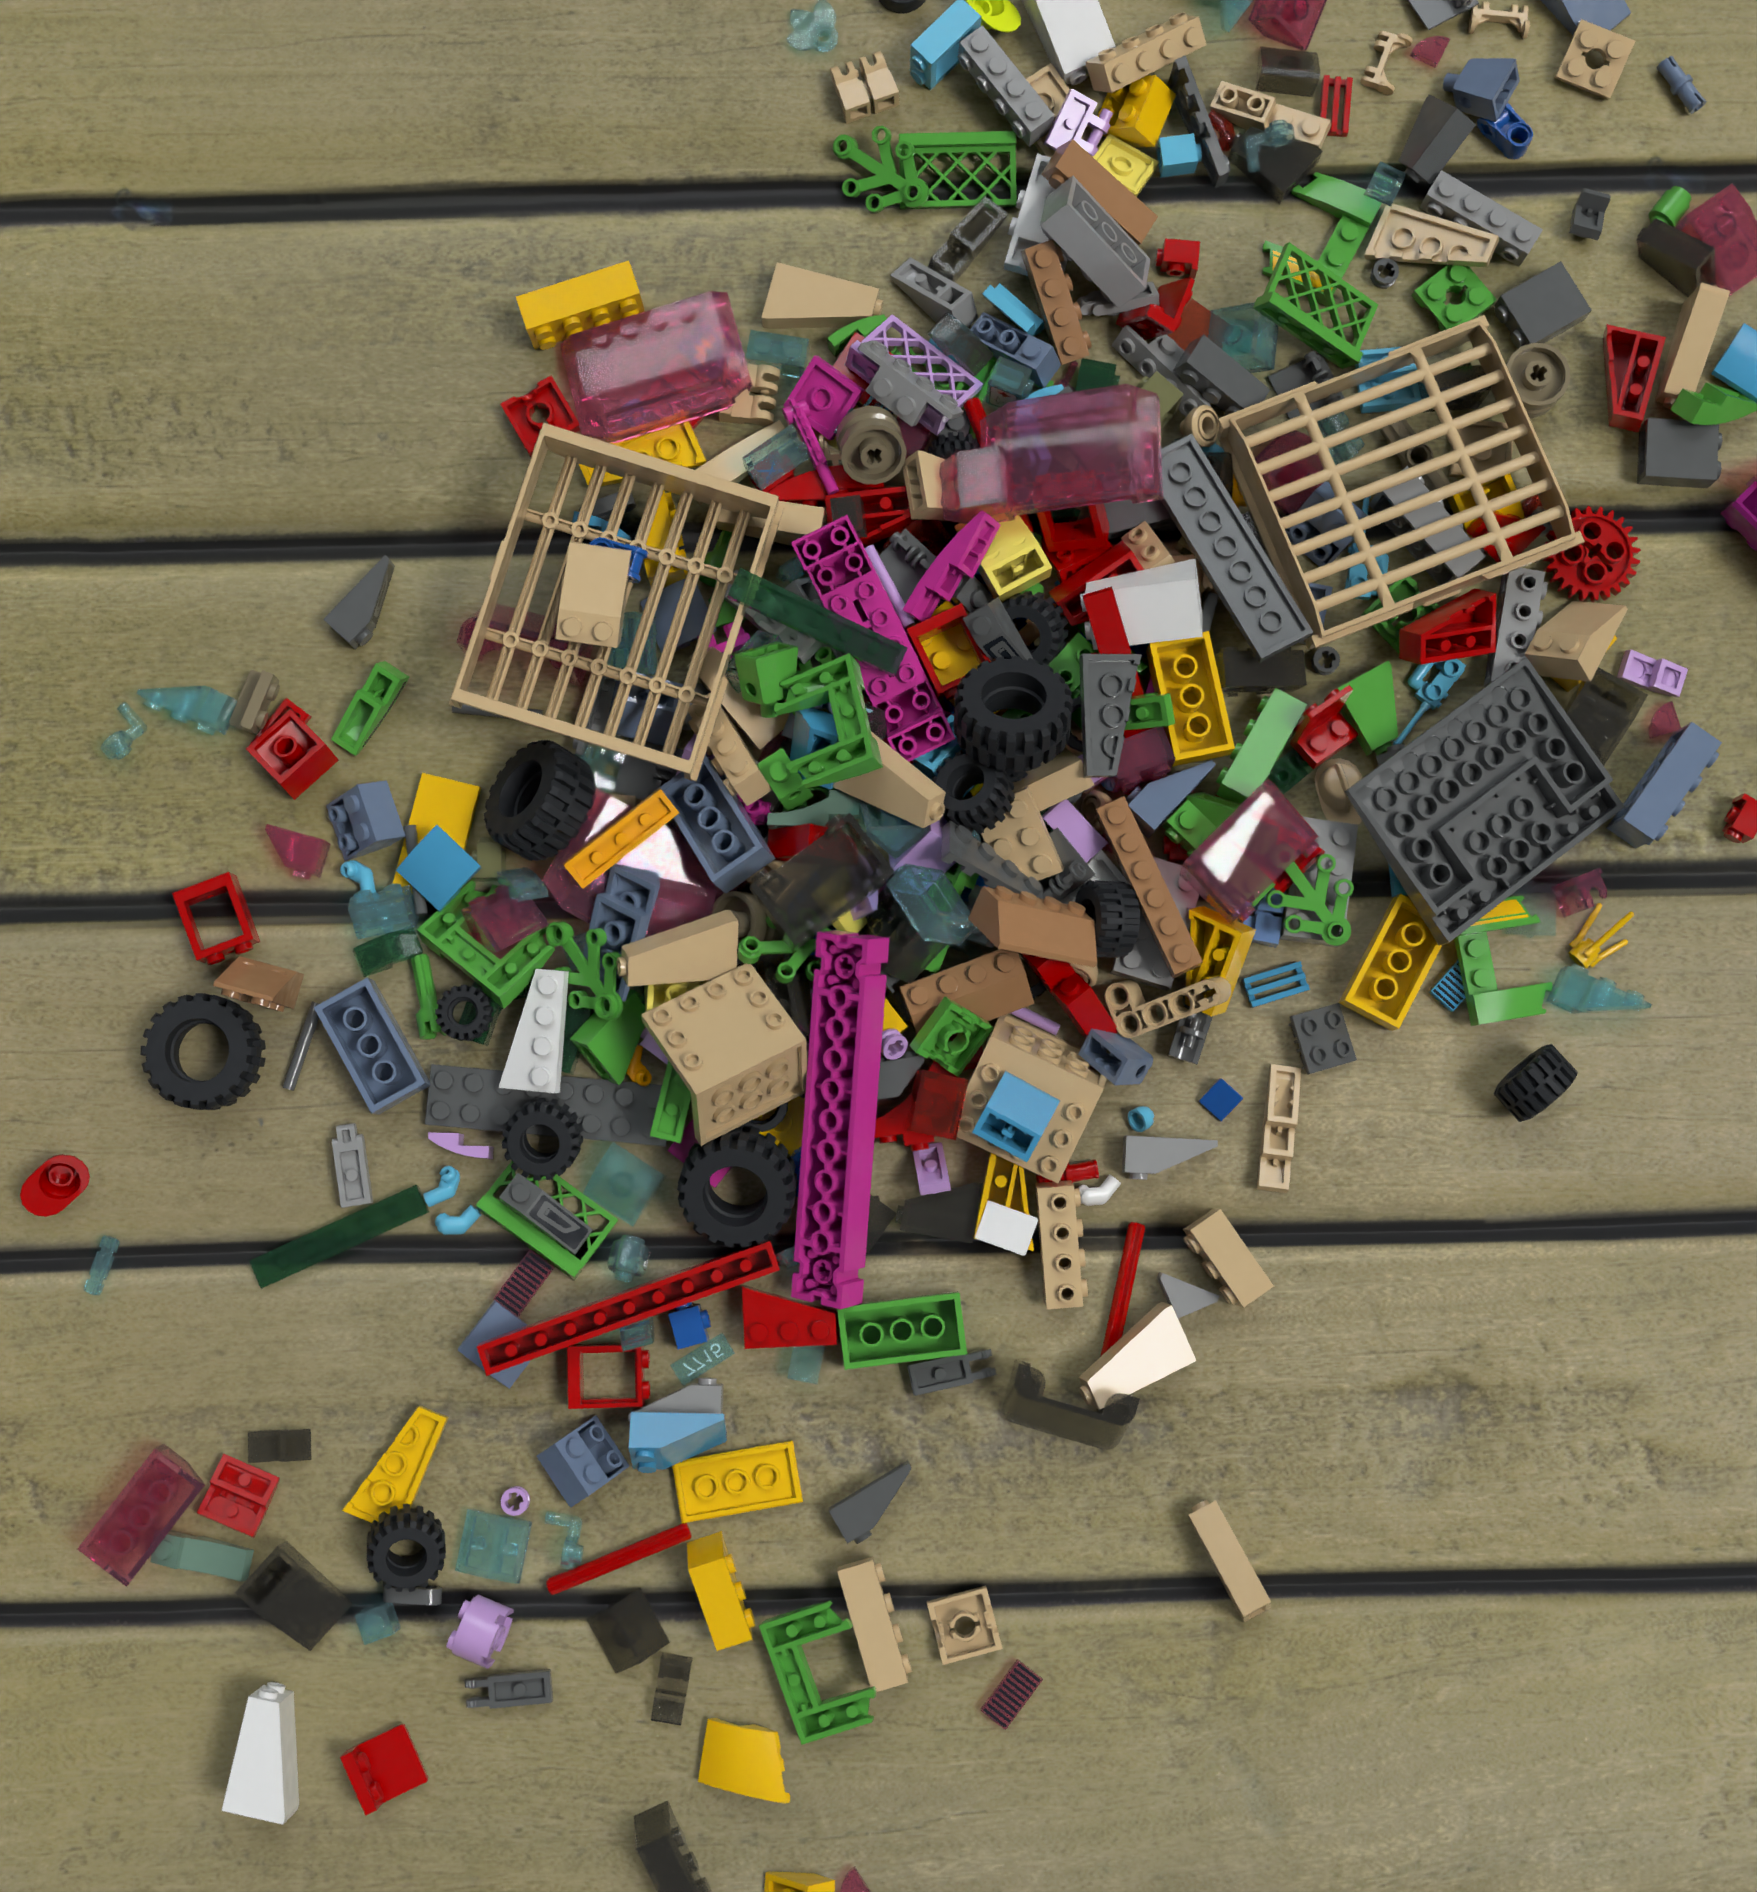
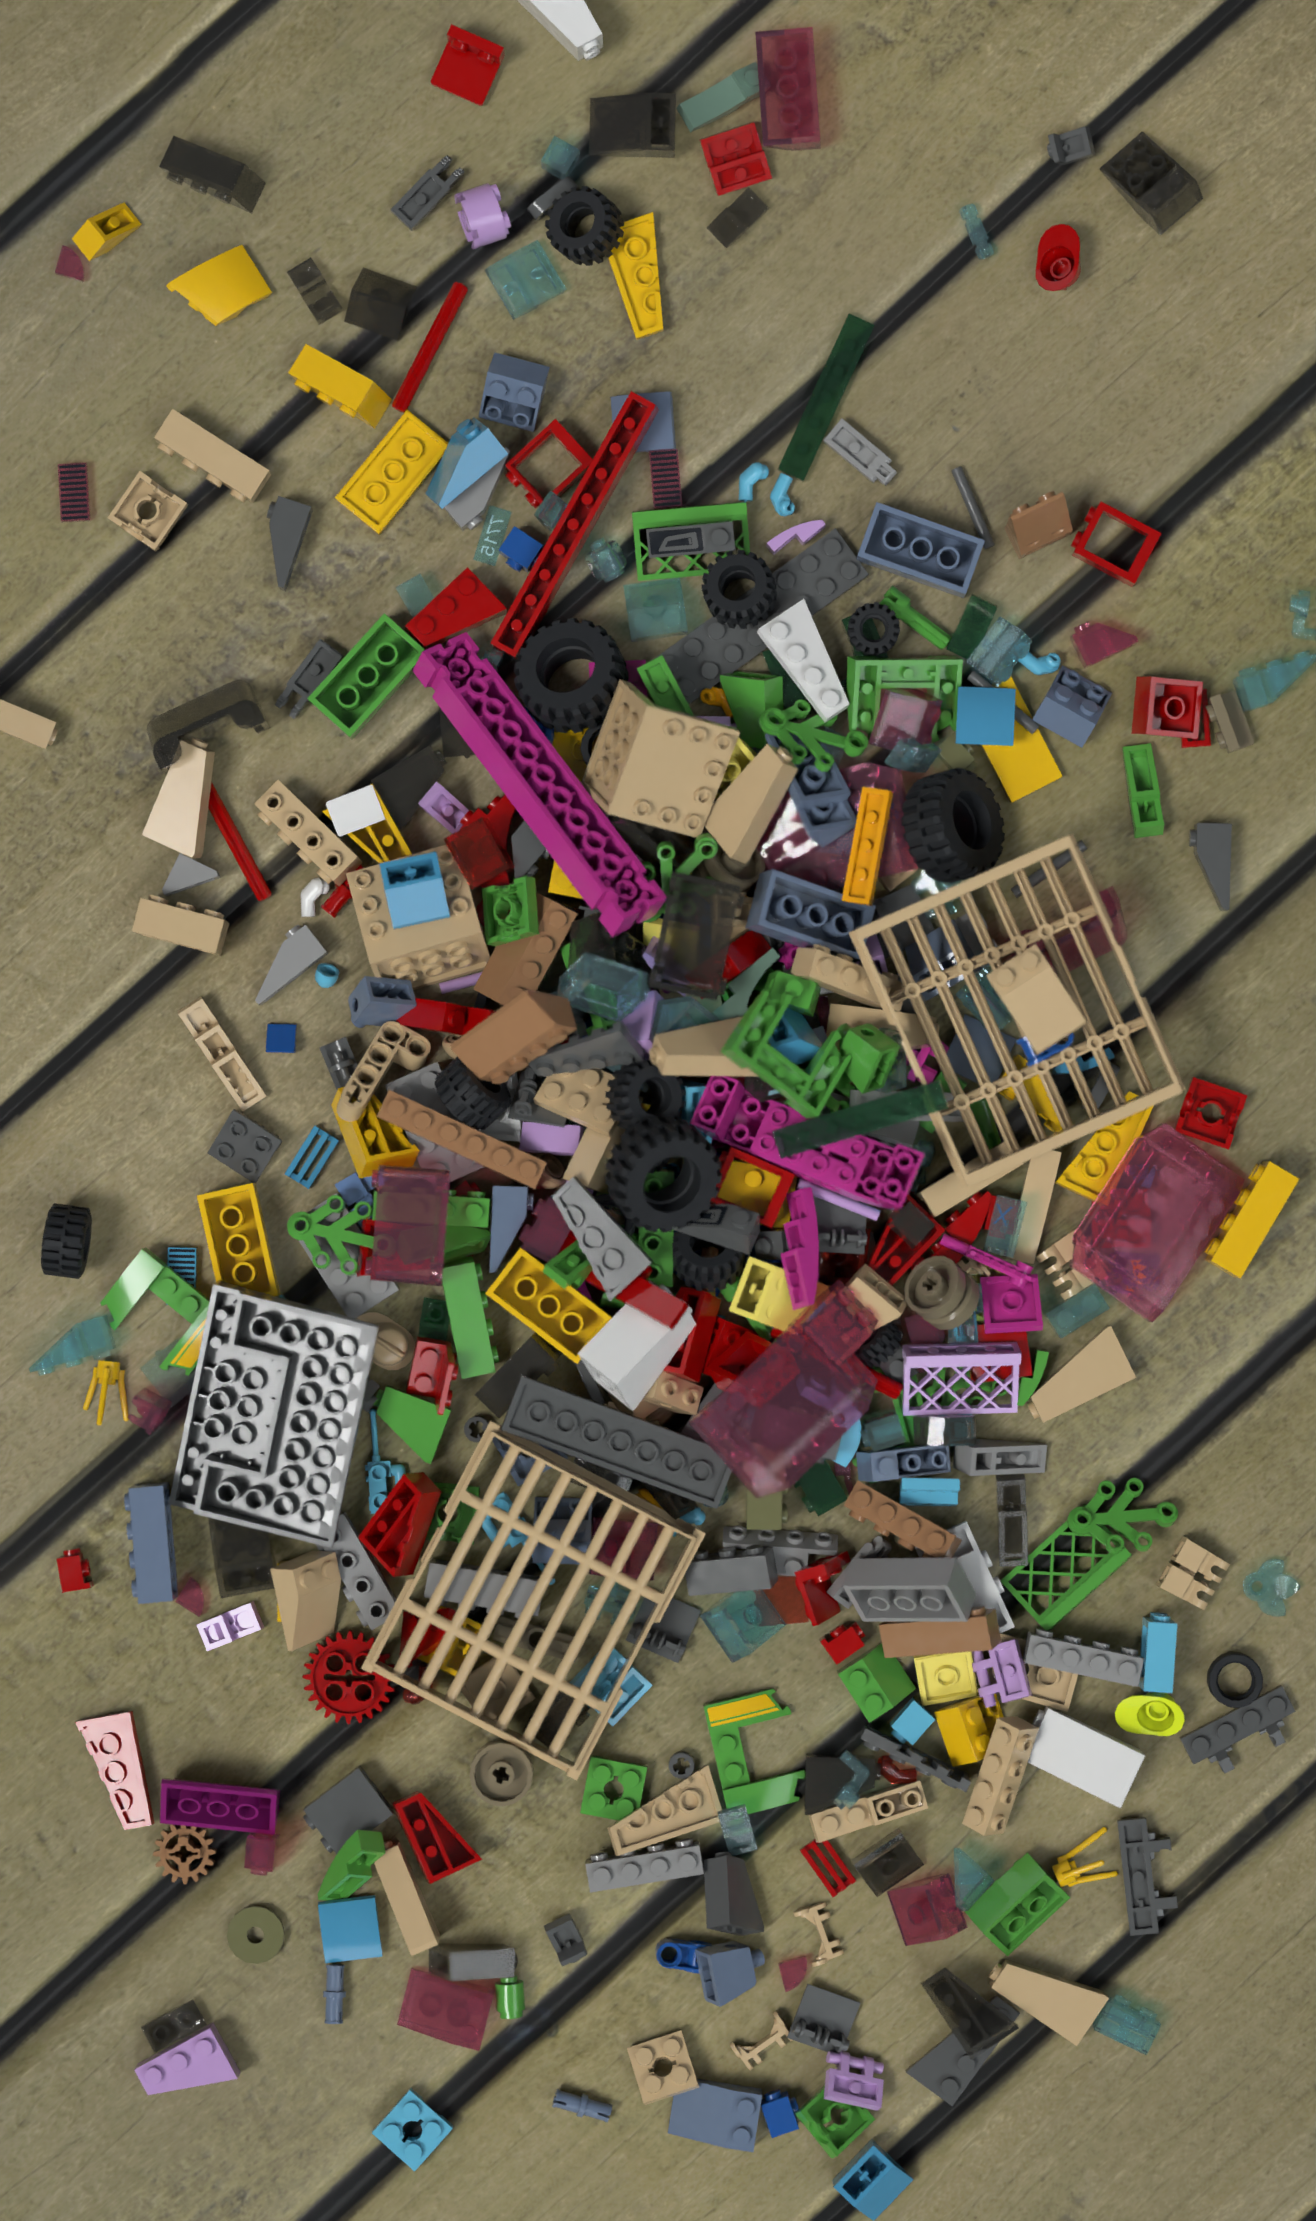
camera: 140 degrees right, 5 degrees up
(164, 1046) = (1045, 403): black tyre -> none
(523, 1505) = (529, 325): lavender bush -> none
(572, 1551) = (466, 323): clear light blue plate -> none
(784, 1642) = (203, 357): bright green wedge -> none
(893, 1044) = (547, 869): lavender bush -> none
(902, 389) = (953, 1354): light grey bracket -> none
(1181, 206) = (876, 1682): none -> bright green slope
(1203, 425) = (716, 1523): tan brick -> none
(1301, 324) = (700, 1664): bright green fence -> none
(1542, 307) = (541, 1835): dark grey brick -> none

